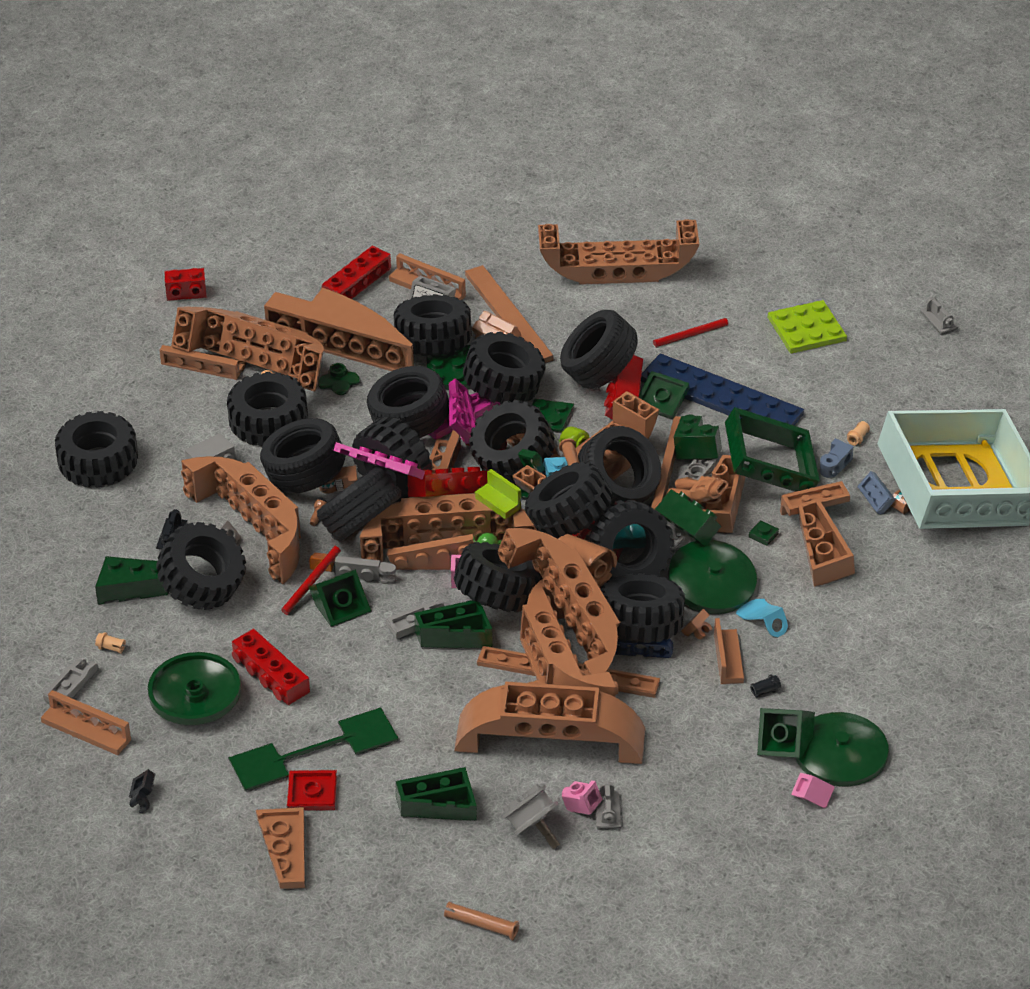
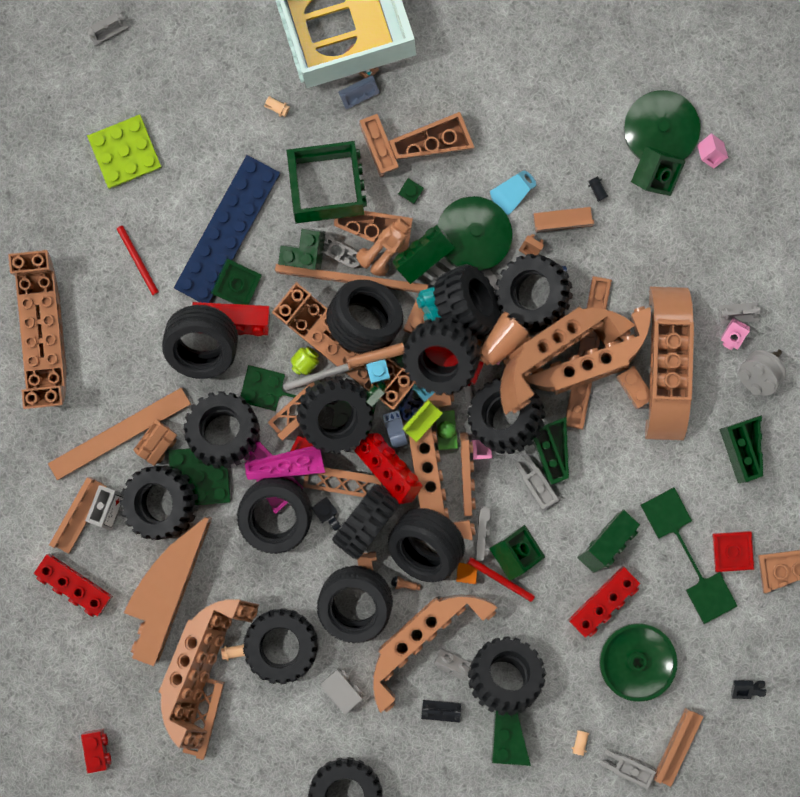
camera: 95 degrees left, 45 degrees up
(338, 379) = (226, 584): dark green plate -> none
(340, 669) = (609, 542): none -> dark green wedge
(378, 458) = (399, 528): dark pink wing -> none
(837, 459) = (316, 126): sand blue leg -> none

